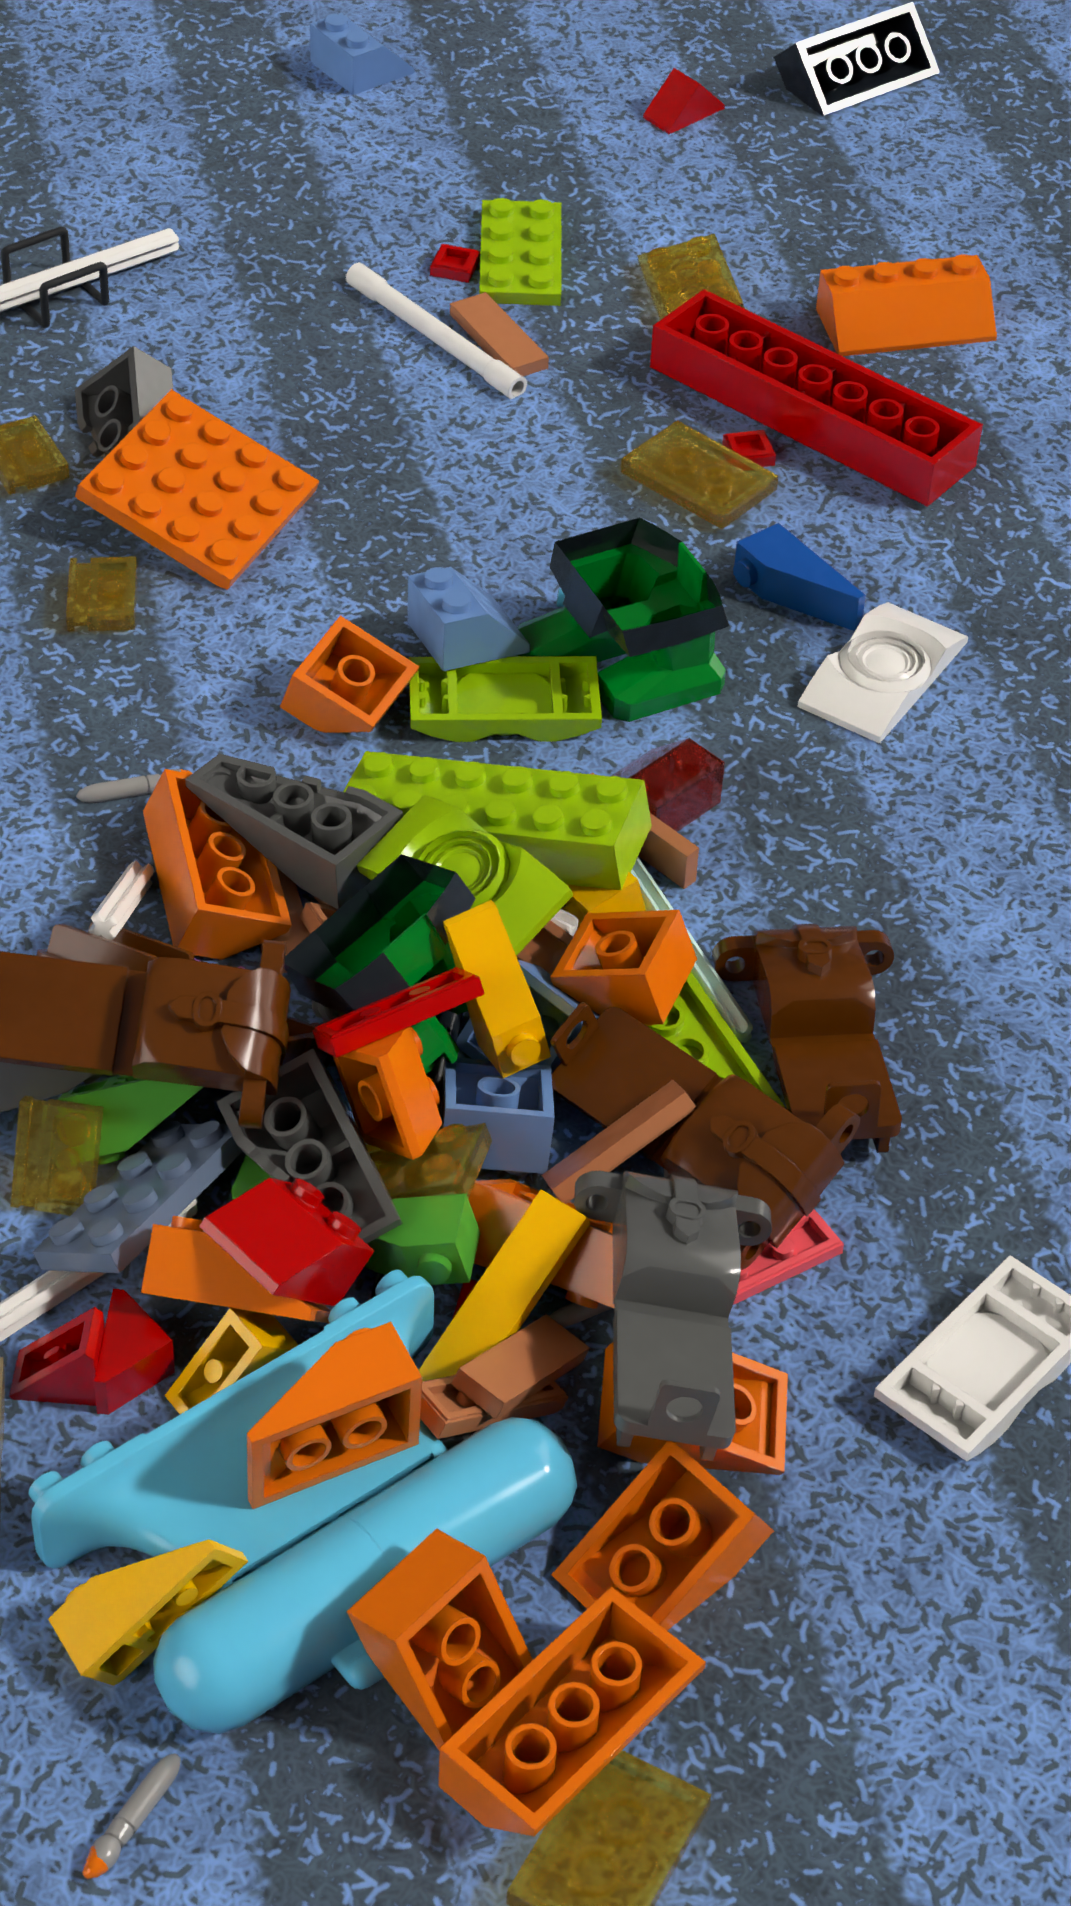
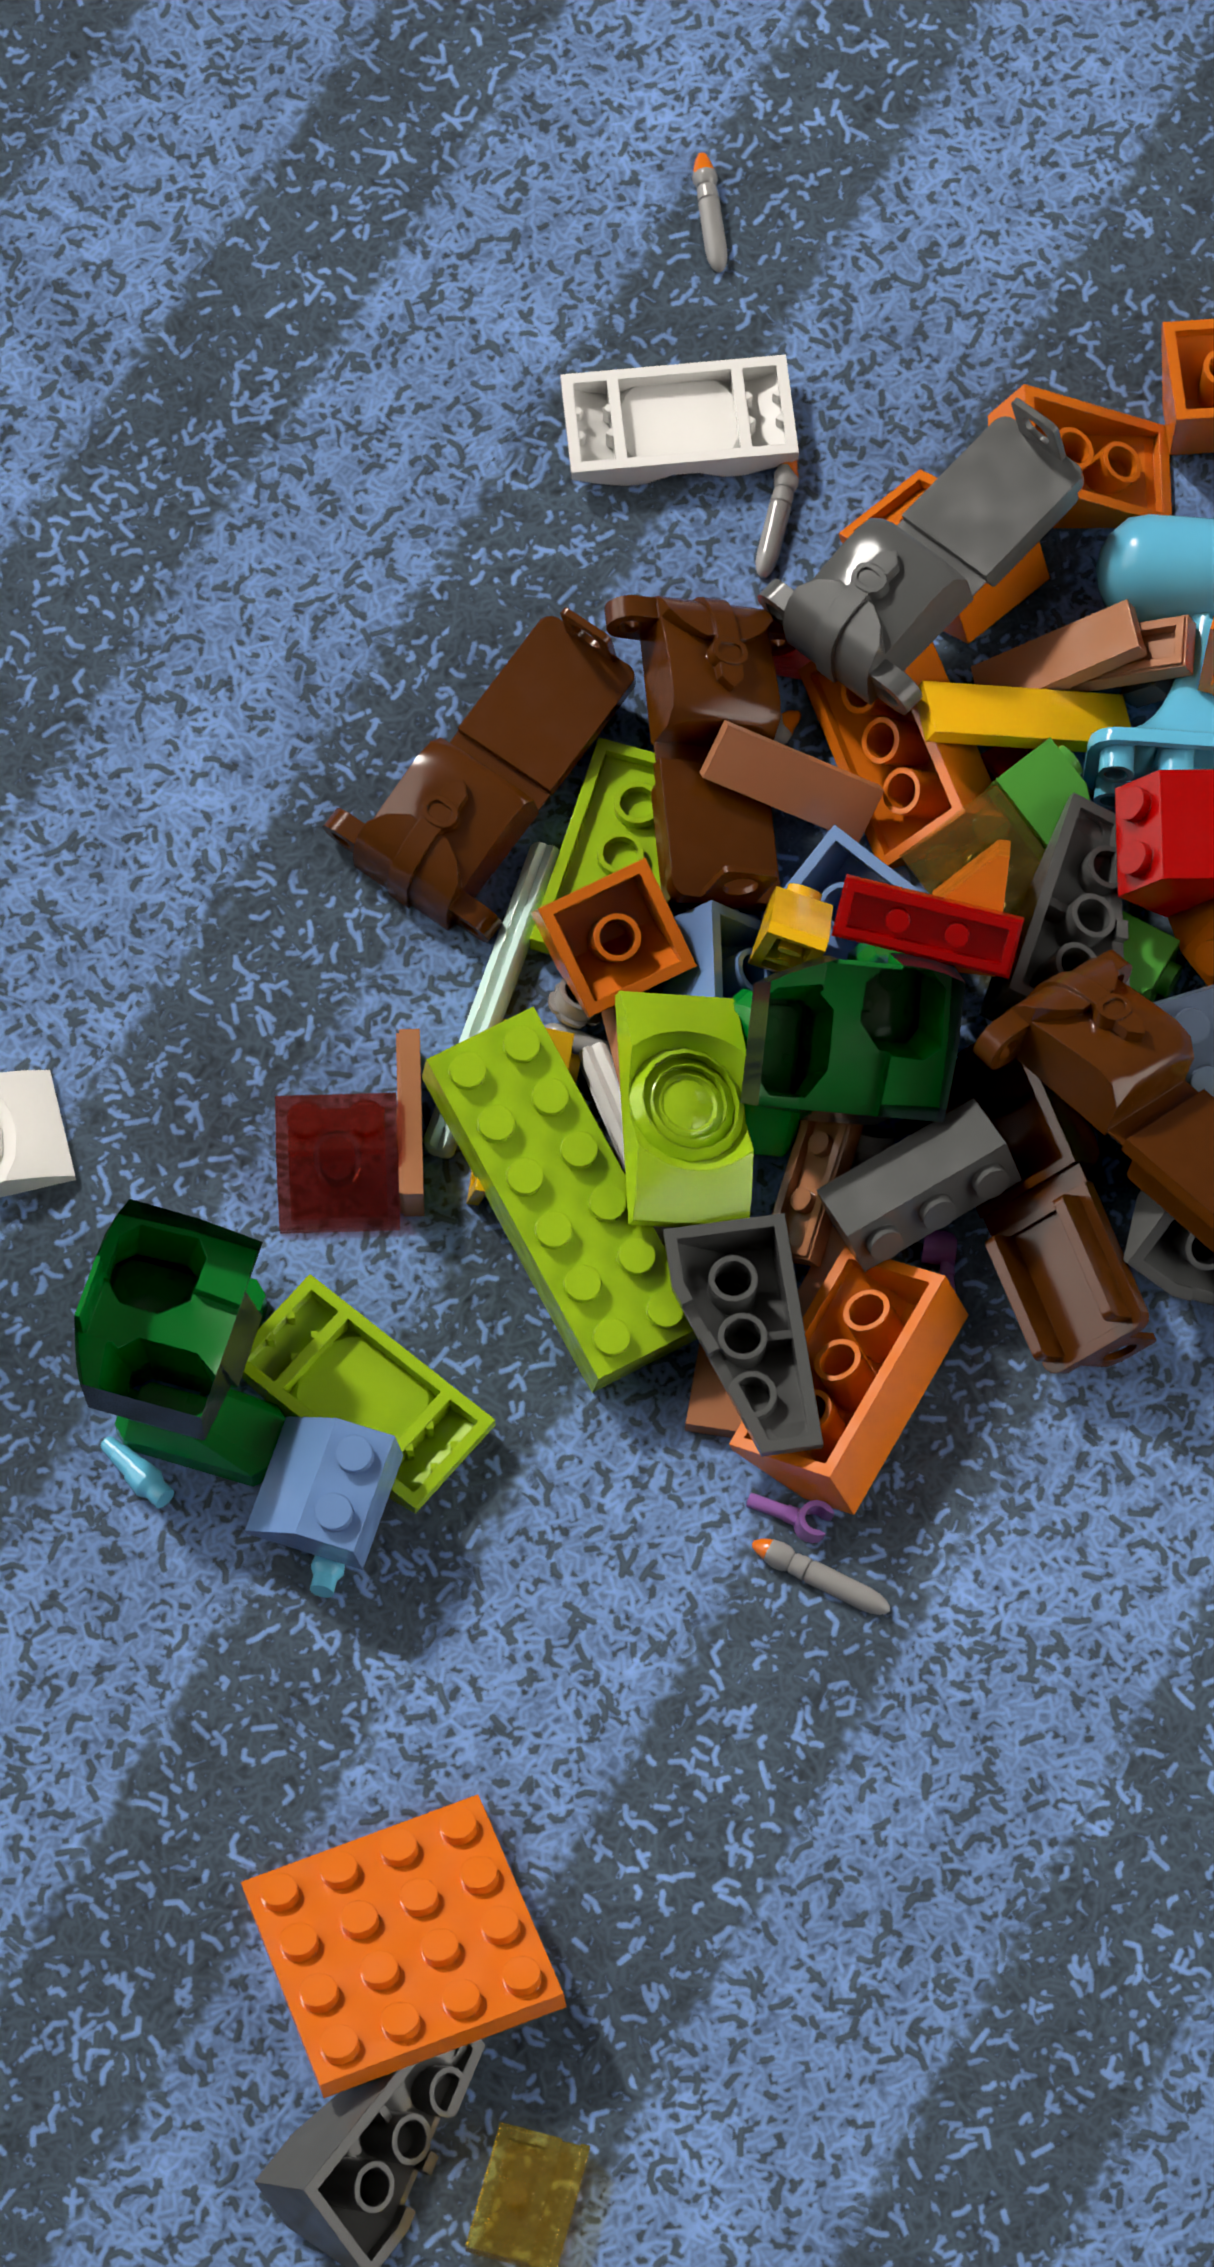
camera: 135 degrees left, 20 degrees up
(102, 594) = (630, 1881): clear yellow plate -> none
(121, 900) = (990, 1369): white axle -> none
(279, 913) = (919, 1185): none -> dark grey brick
(347, 681) = (512, 1516): orange slope -> none
(843, 1356) = (785, 484): none -> light grey piece

